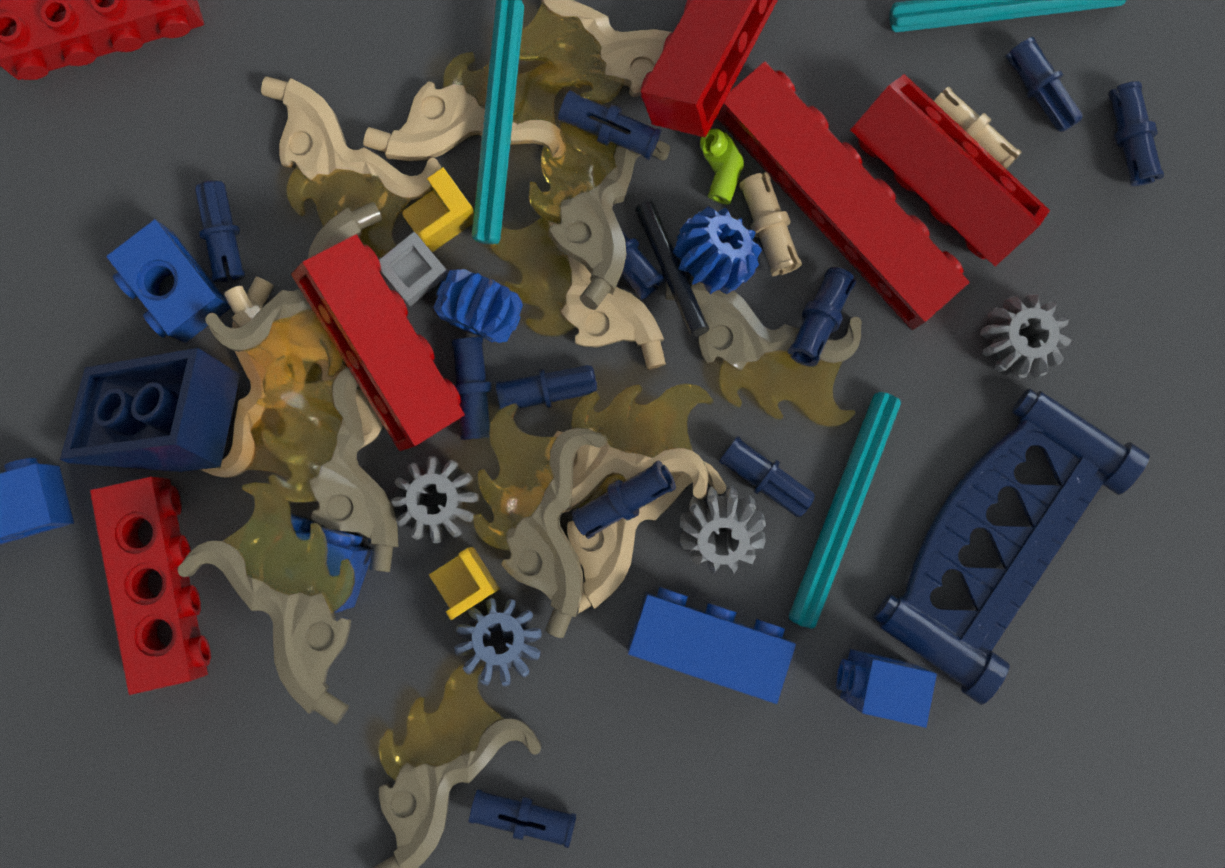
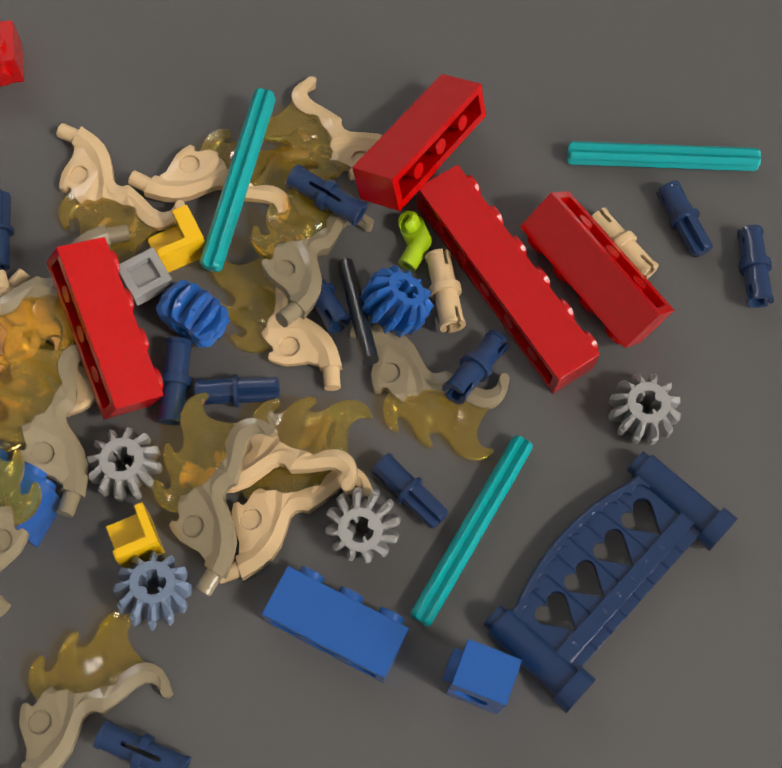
camera: 10 degrees right, 15 degrees down
(623, 499) = (282, 484): dark blue pin -> none

